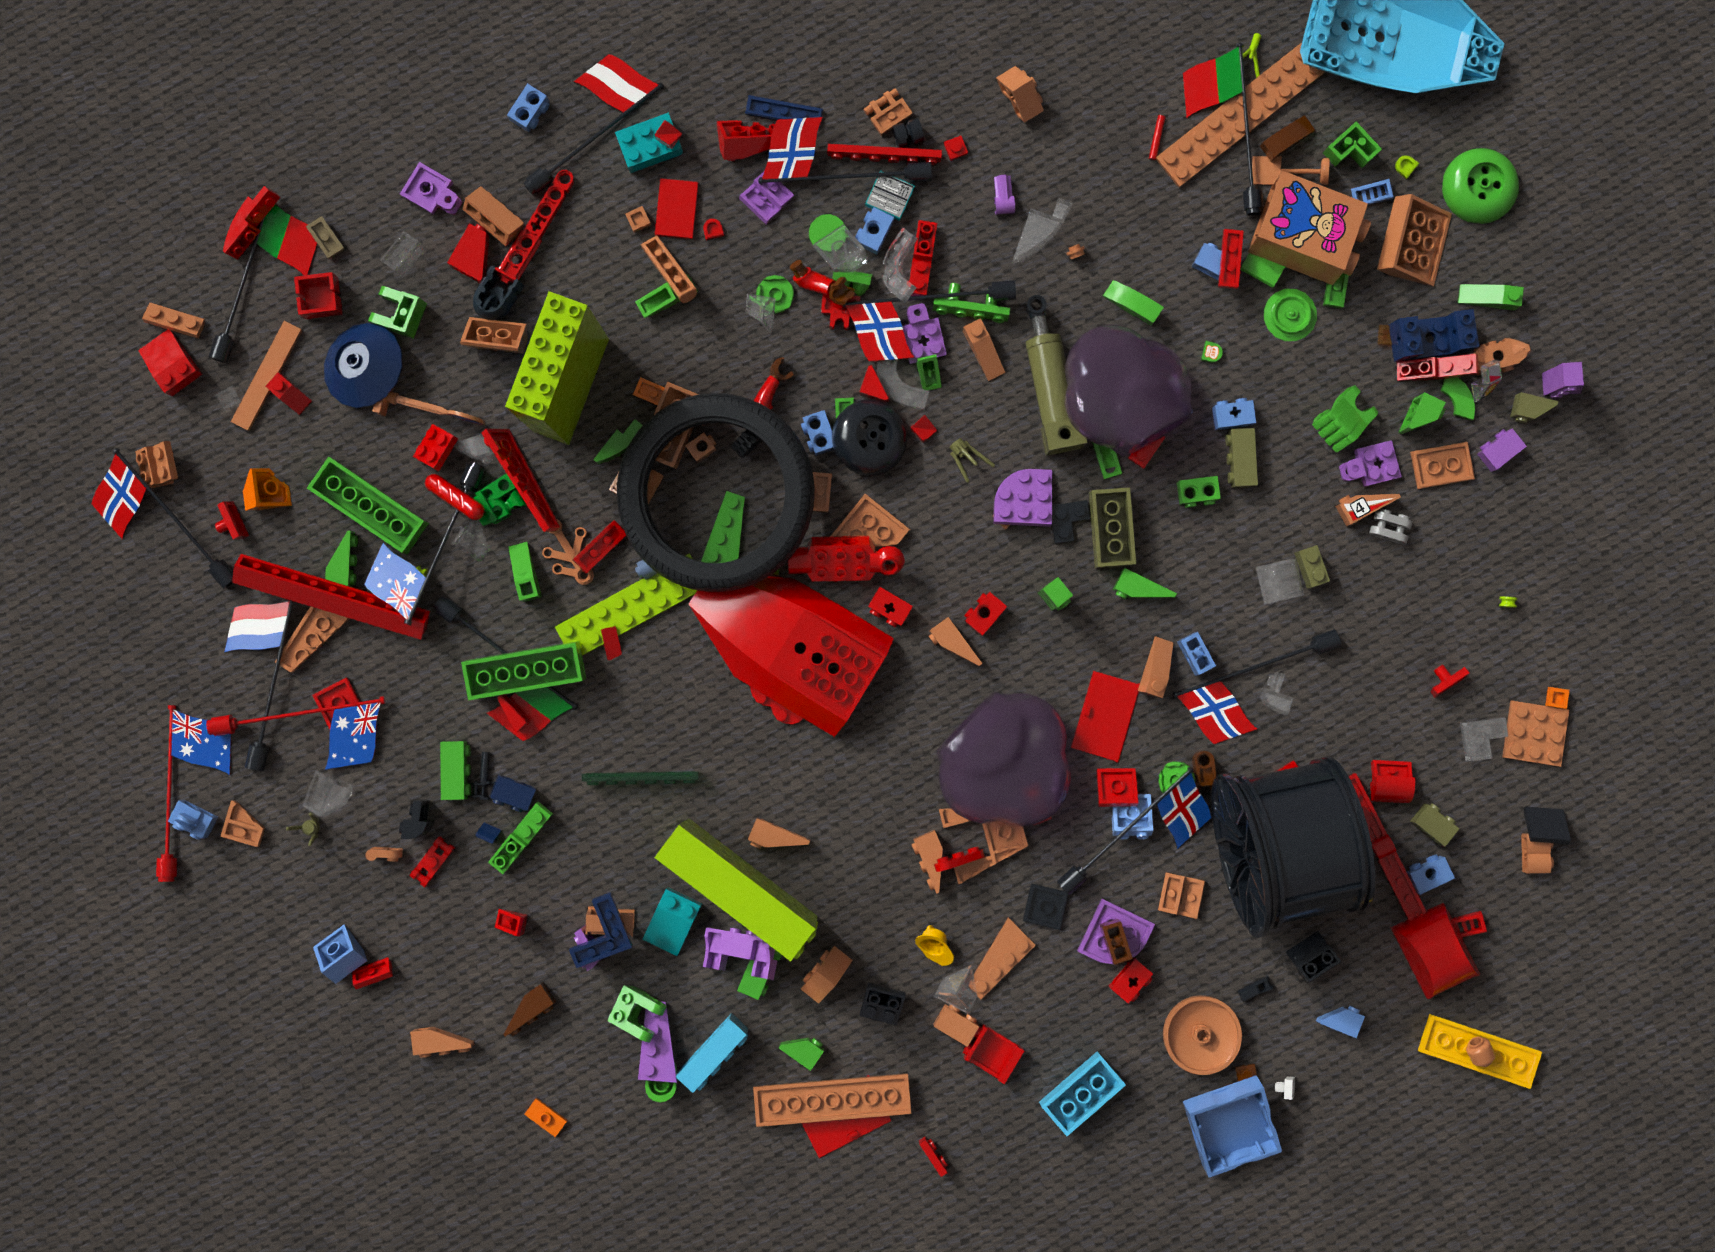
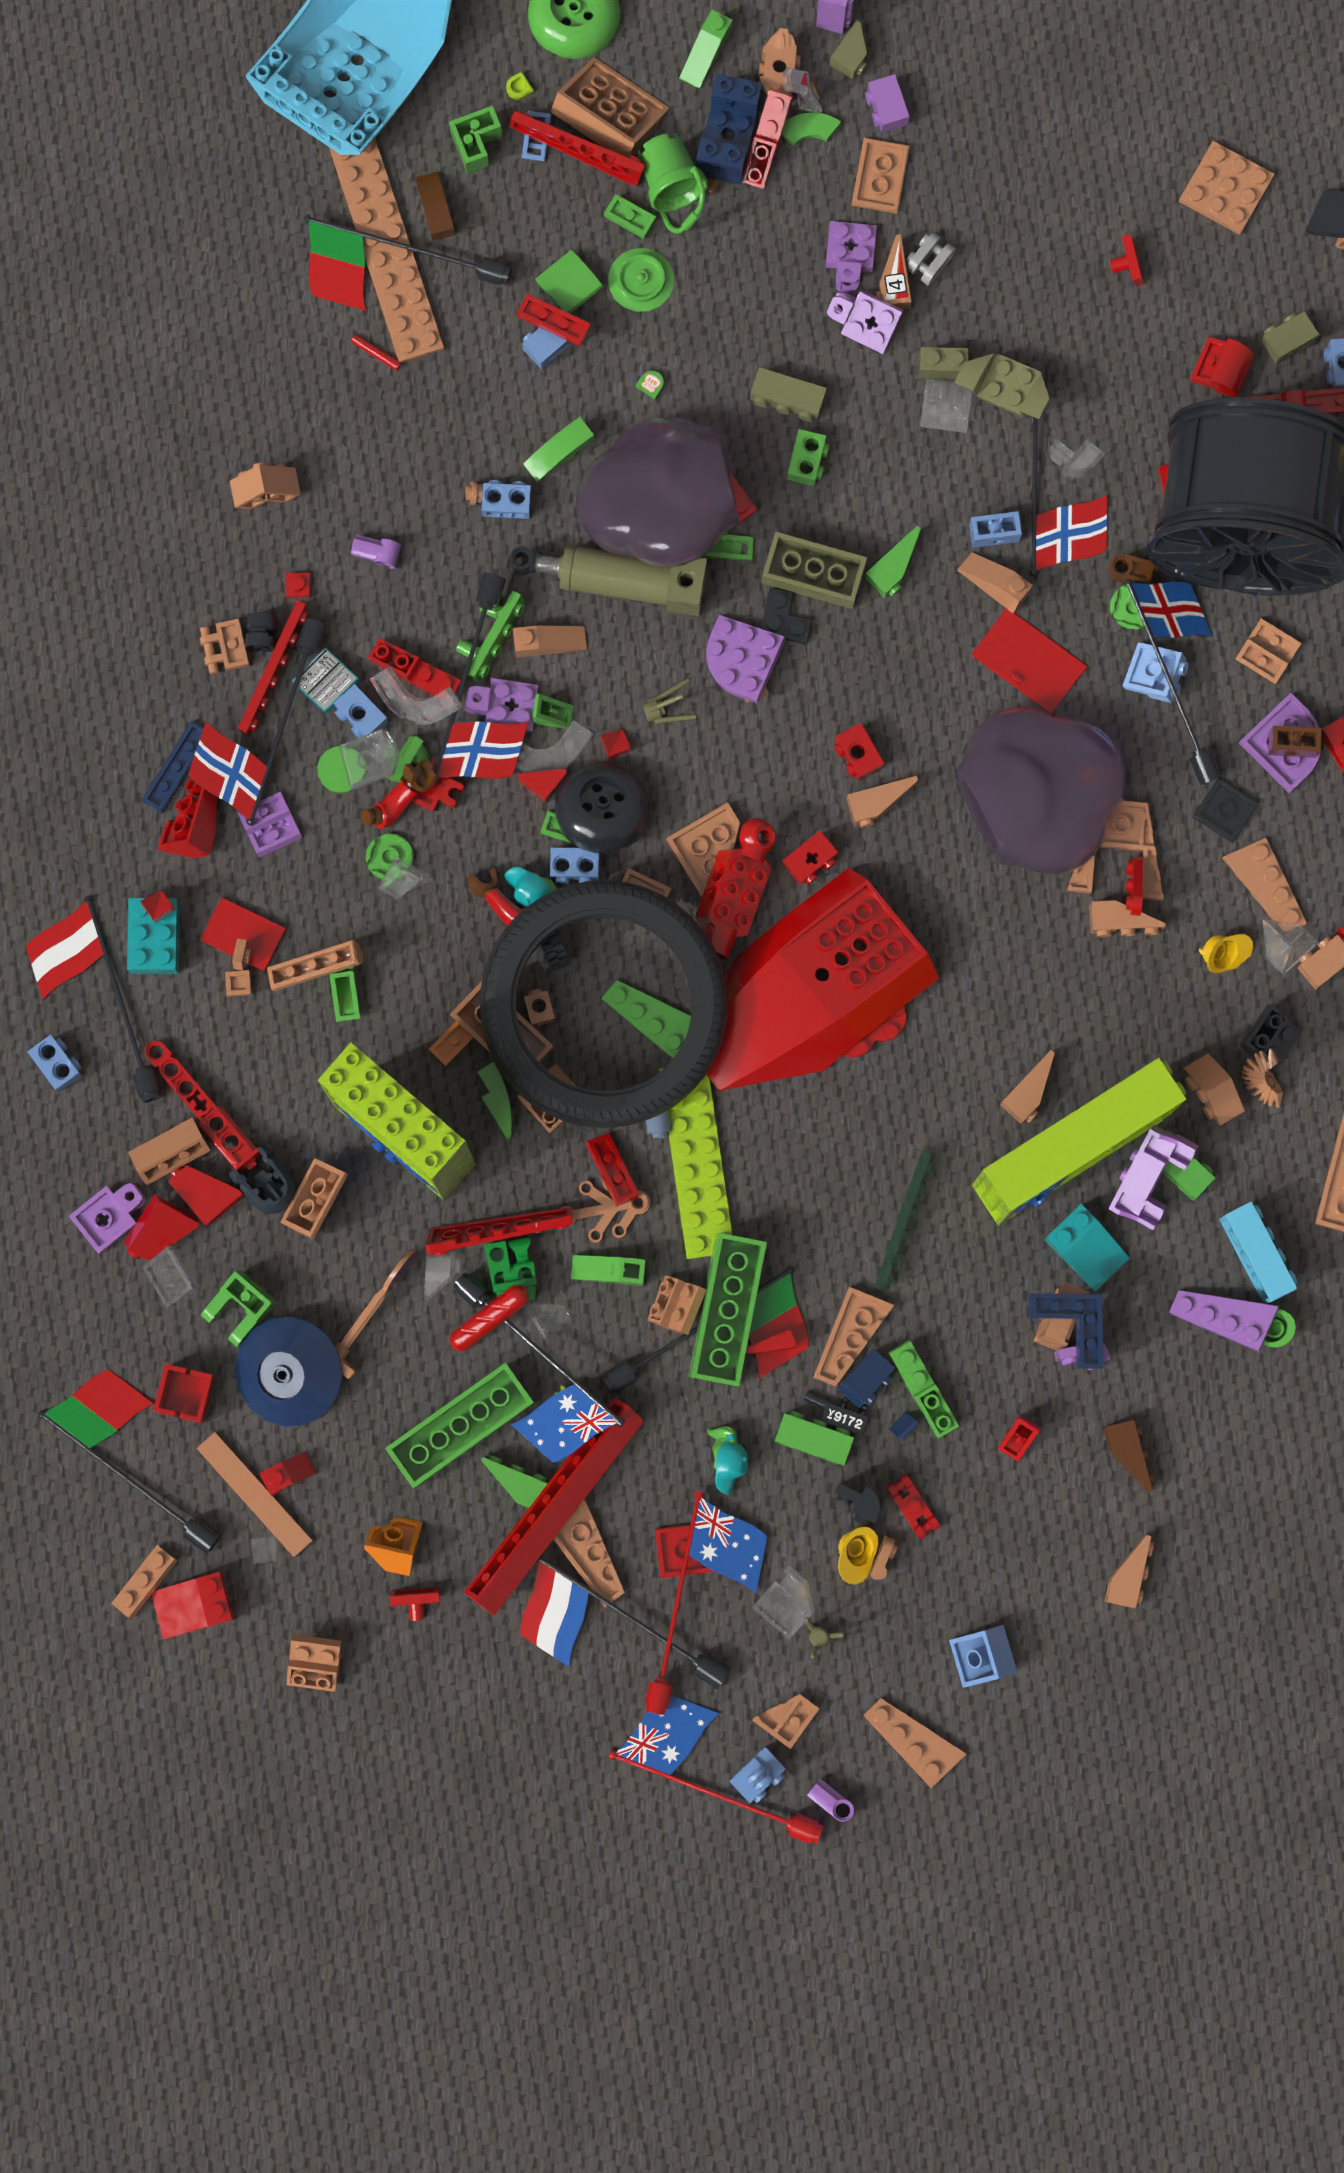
camera: 65 degrees left, 5 degrees down
(121, 497) = (335, 1719): flag -> none
(194, 879) = (829, 1799): none -> medium lavender piece
(244, 225) = (65, 1454): red slope -> none
(257, 931) = (917, 1745): none -> nougat wing
(325, 237) = (116, 1362): dark tan plate -> none
(372, 973) = (1020, 1625): red plate -> none
(378, 833) = (857, 1554): none -> yellow piece
(417, 712) = (730, 1458): none -> teal hair
(433, 230) = (158, 1228): none -> red slope
(435, 447) = (420, 1320): red plate -> none
(477, 787) = (844, 1419): none -> black sticker
(515, 631) = (676, 1305): none -> nougat brick
(545, 1117) = (1264, 1482): orange plate -> none
(547, 769) = (852, 1330): none -> nougat wing
(611, 642) = (731, 1198): red sticker -> none
(628, 1008) = (1172, 1335): brick -> none
(658, 211) = (241, 954): none -> nougat plate
(713, 229) = (284, 900): red tile -> none
(788, 408) = (528, 885): none -> teal hair
(803, 1051) = (1294, 1148): bright green slope -> none
(848, 1006) = (1259, 1077): none -> nougat hair
(1040, 231) = (434, 524): clear slope -> none
(1056, 594) = (868, 660): bright green brick -> none
(1074, 278) = (506, 507): none -> medium blue brick
(1117, 787) = (1117, 676): red plate -> none
(1224, 420) = (735, 398): medium blue brick -> none
(1253, 54) = (315, 206): lime plant -> none
(1267, 171) = (467, 241): nougat piece -> none
(1310, 228) = (552, 219): nougat brick -> none
(1312, 620) = (1005, 384): none -> olive piece
(1325, 484) = (854, 316): none -> plate
(1344, 420) = (789, 265): bright green piece -> none
(1371, 264) = (623, 168): none -> red wing
(1377, 307) = (672, 179): none -> bright green piece
(1422, 412) = (811, 174): bright green slope -> none
(1477, 735) = (1204, 251): clear brick -> none
(1508, 602) = (1064, 161): lime bush -> none
(1557, 697) = (1194, 148): orange plate -> none

